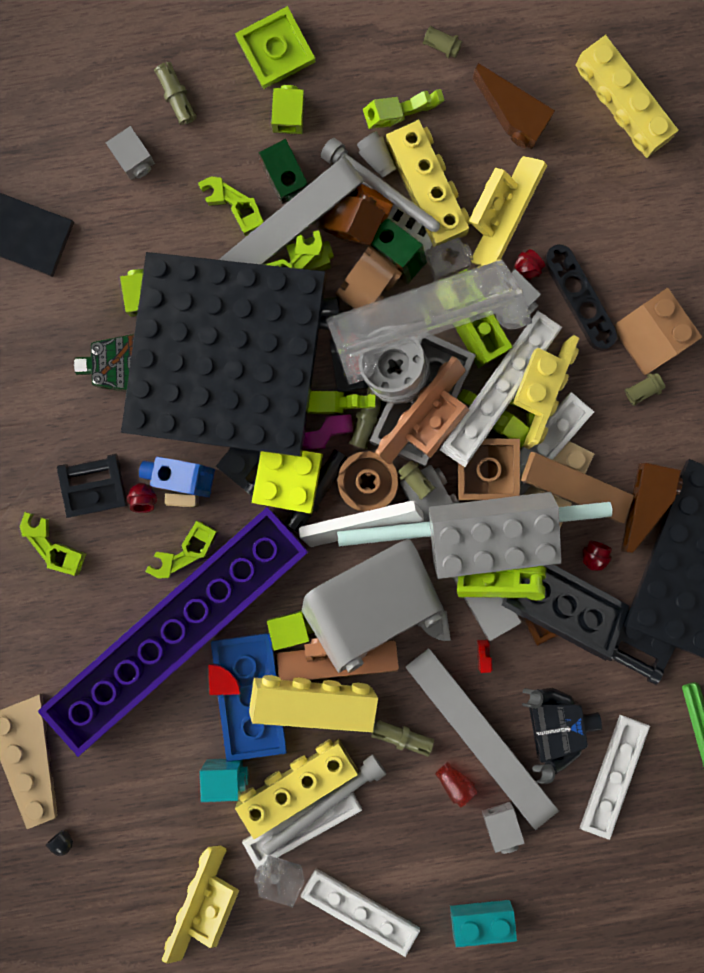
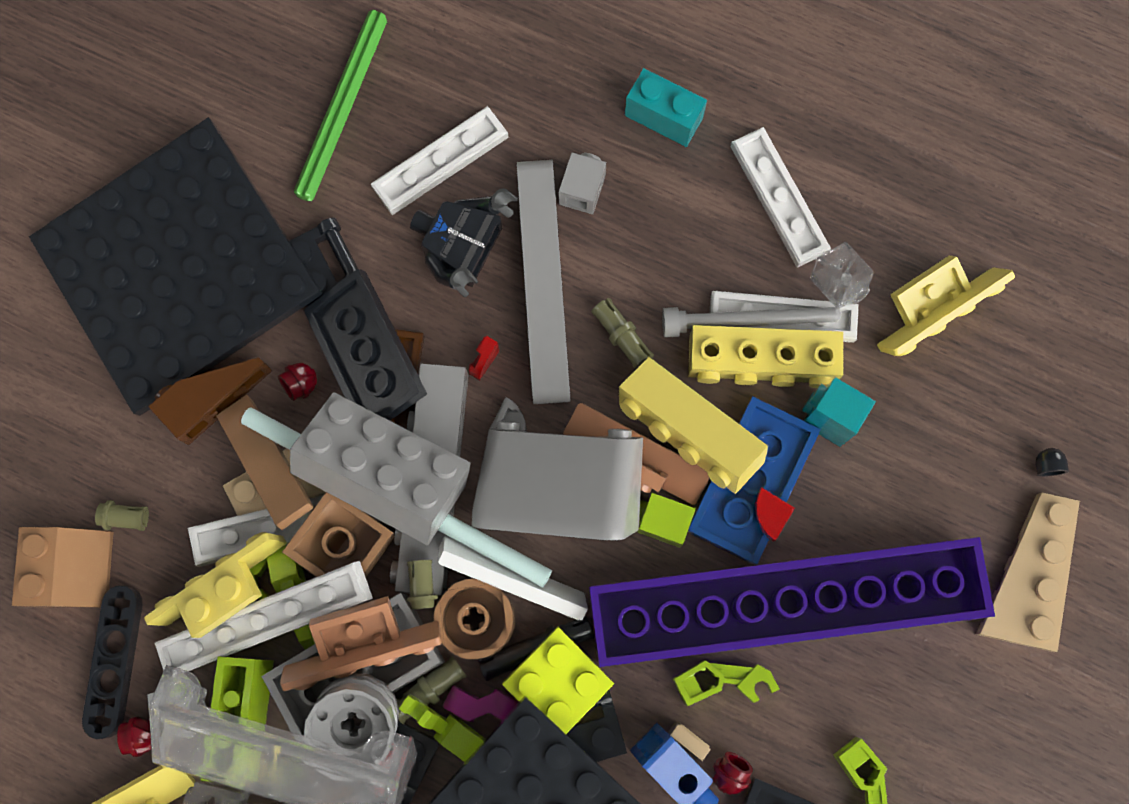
camera: 145 degrees left, 10 degrees down
(457, 786) = (599, 249): clear red cone -> none
(504, 584) = (407, 411): lime plate -> none

